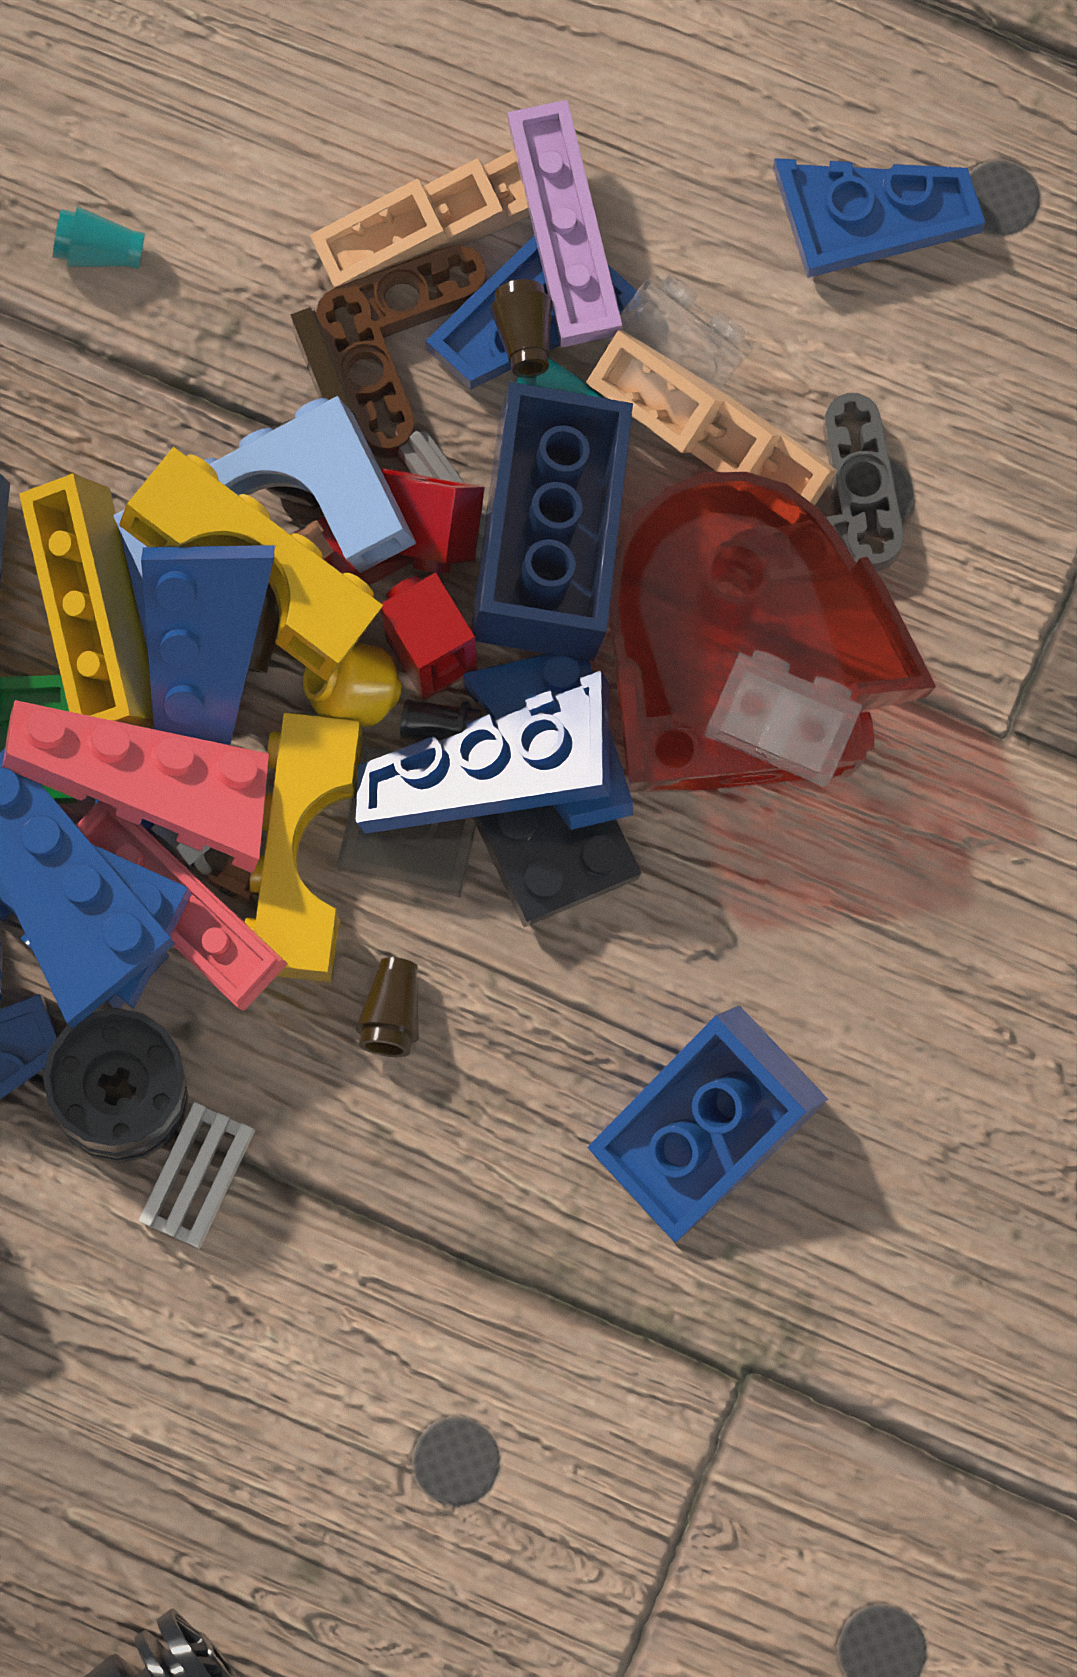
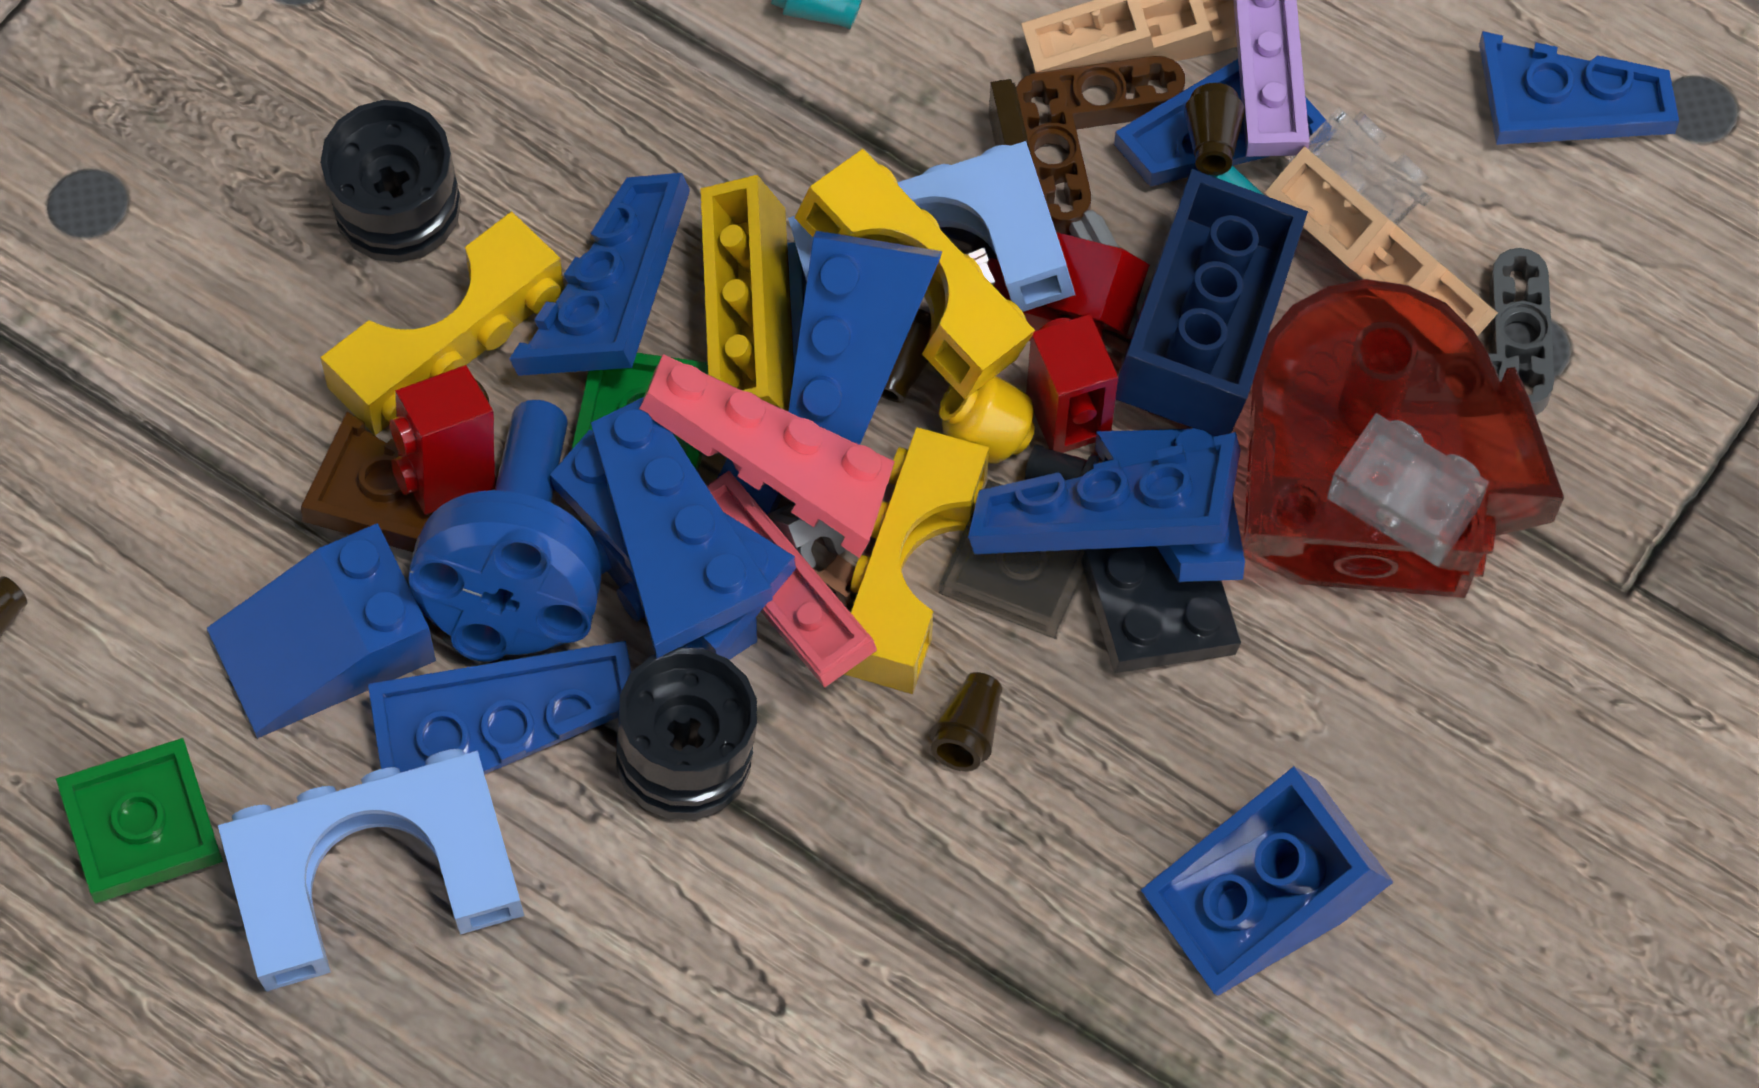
camera: 10 degrees right, 15 degrees down
(174, 1163) = (775, 801): white tile -> none

